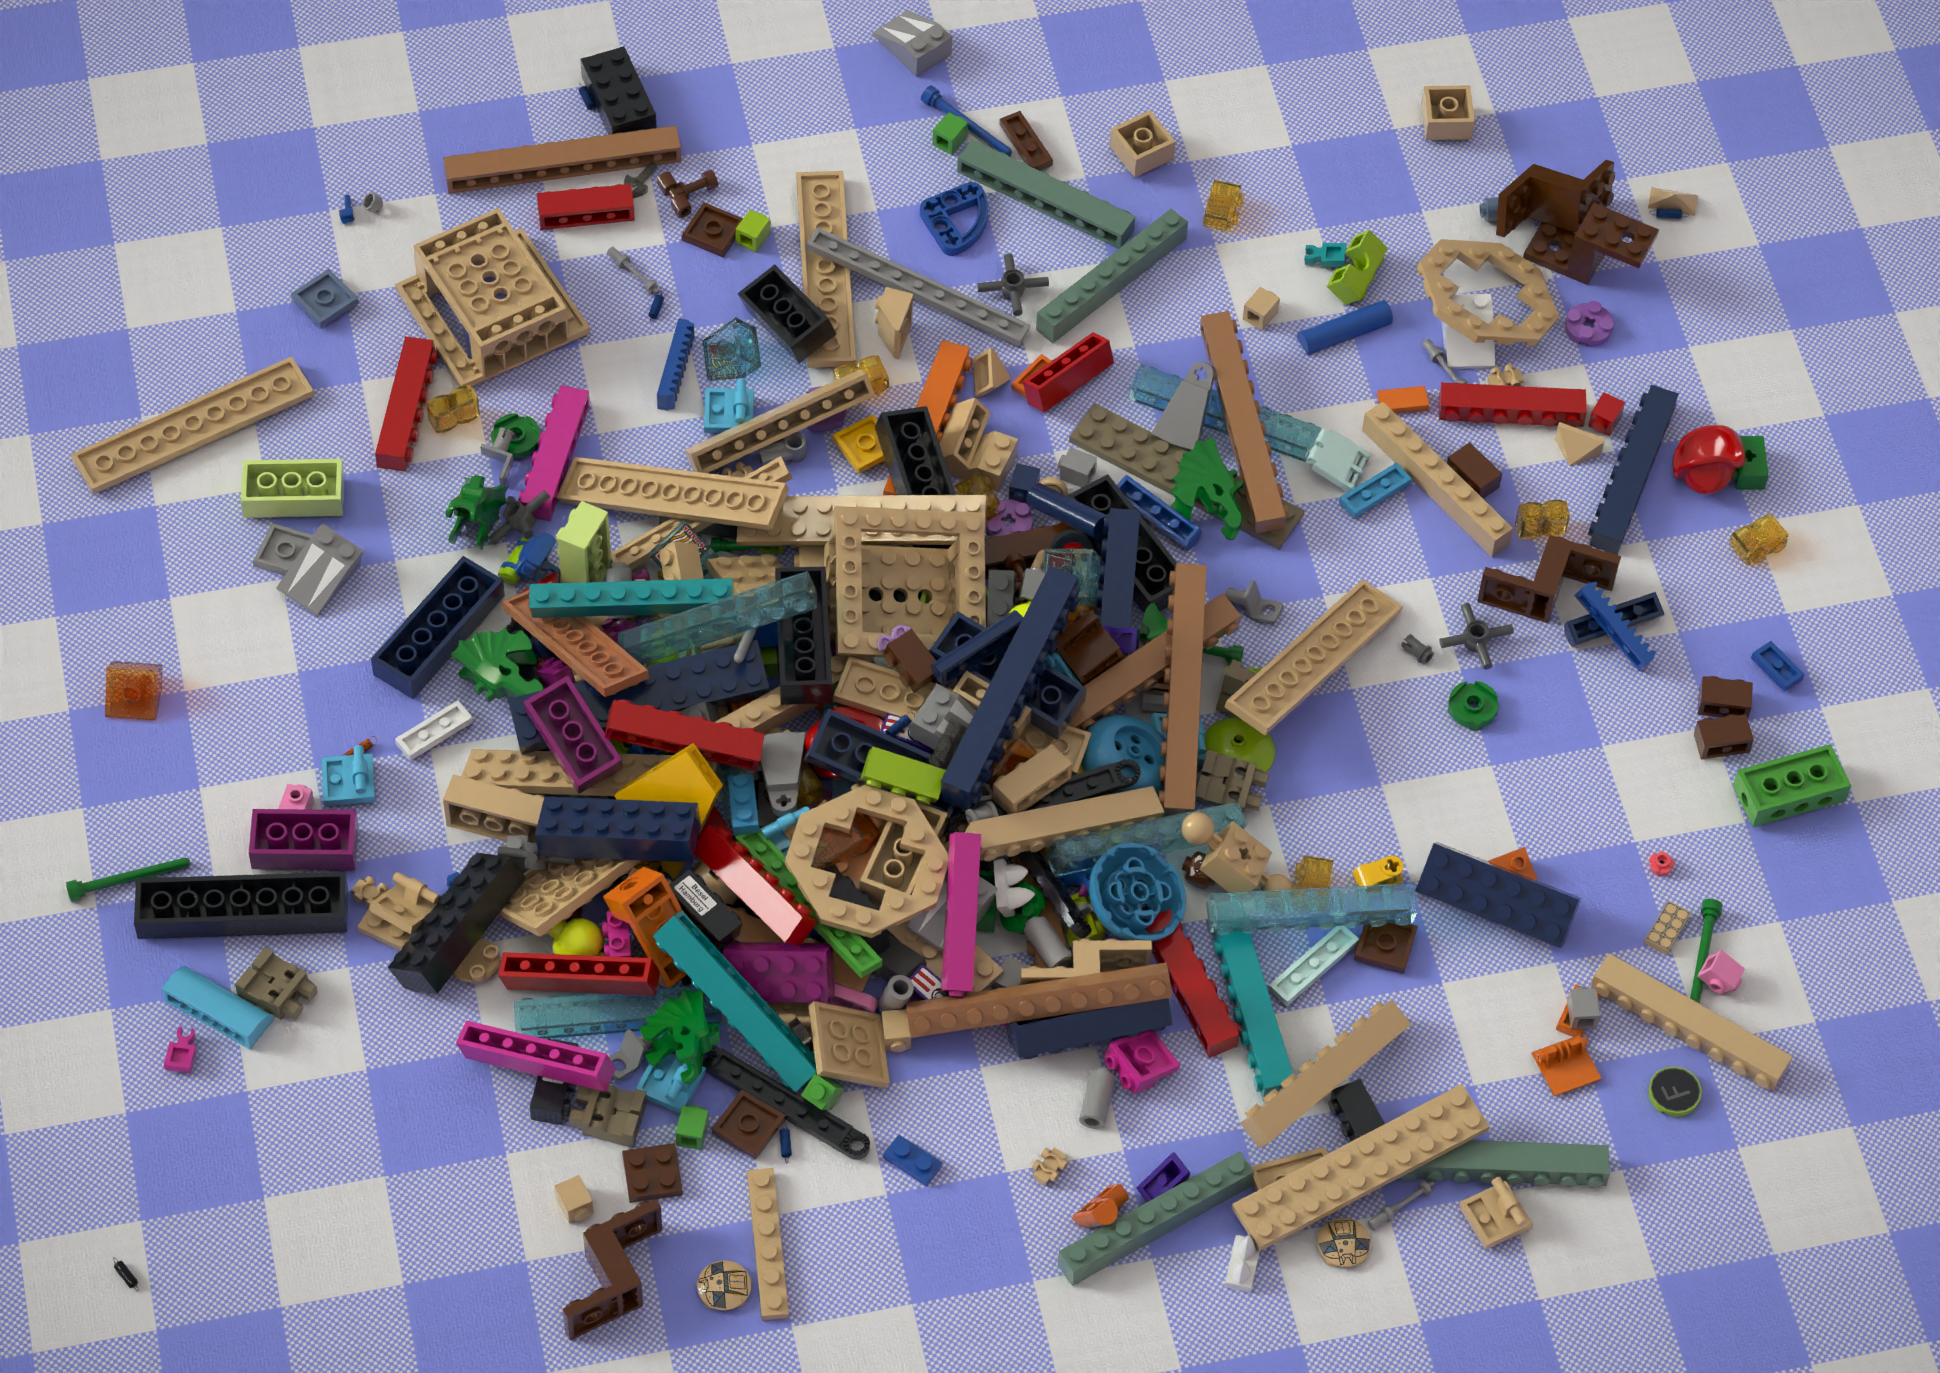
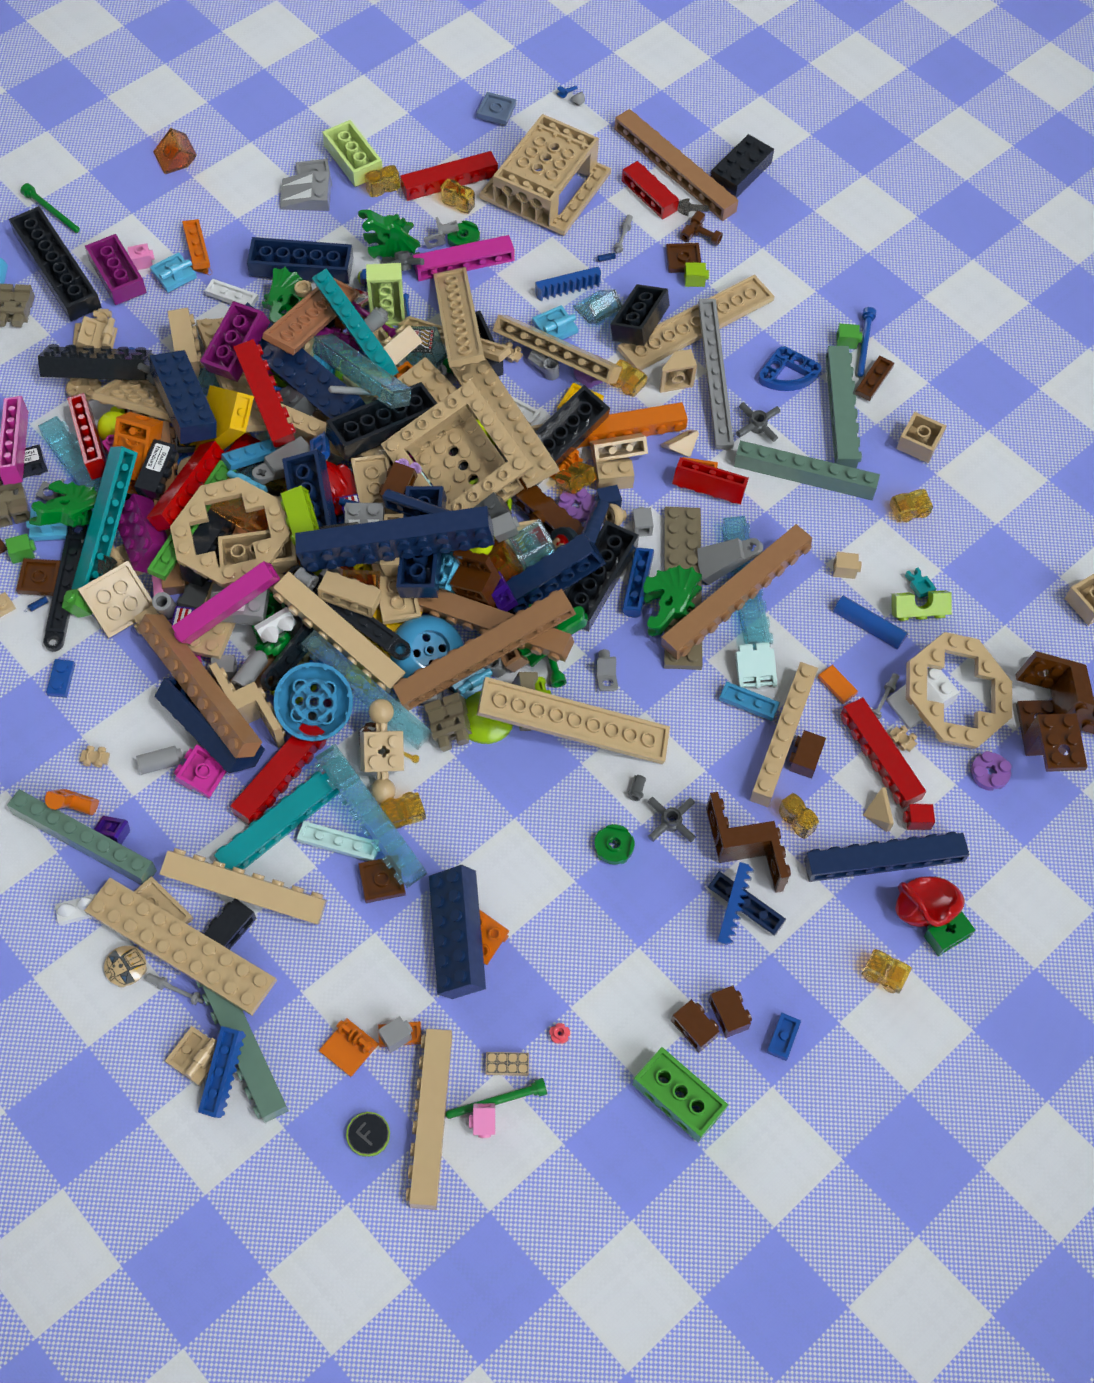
camera: 60 degrees right, 5 degrees up
(192, 425) = (370, 95): tan plate -> none
(320, 731) = (196, 244): none -> orange plate
(363, 479) = (382, 181): none -> clear yellow brick
(513, 635) = (303, 288): none -> tan tile
(796, 719) = (321, 443): none -> blue plate
(915, 41) = (903, 288): light grey slope -> none
(1379, 873) = (430, 847): yellow piece -> none
(1536, 1189) = (221, 1072): none -> blue gear

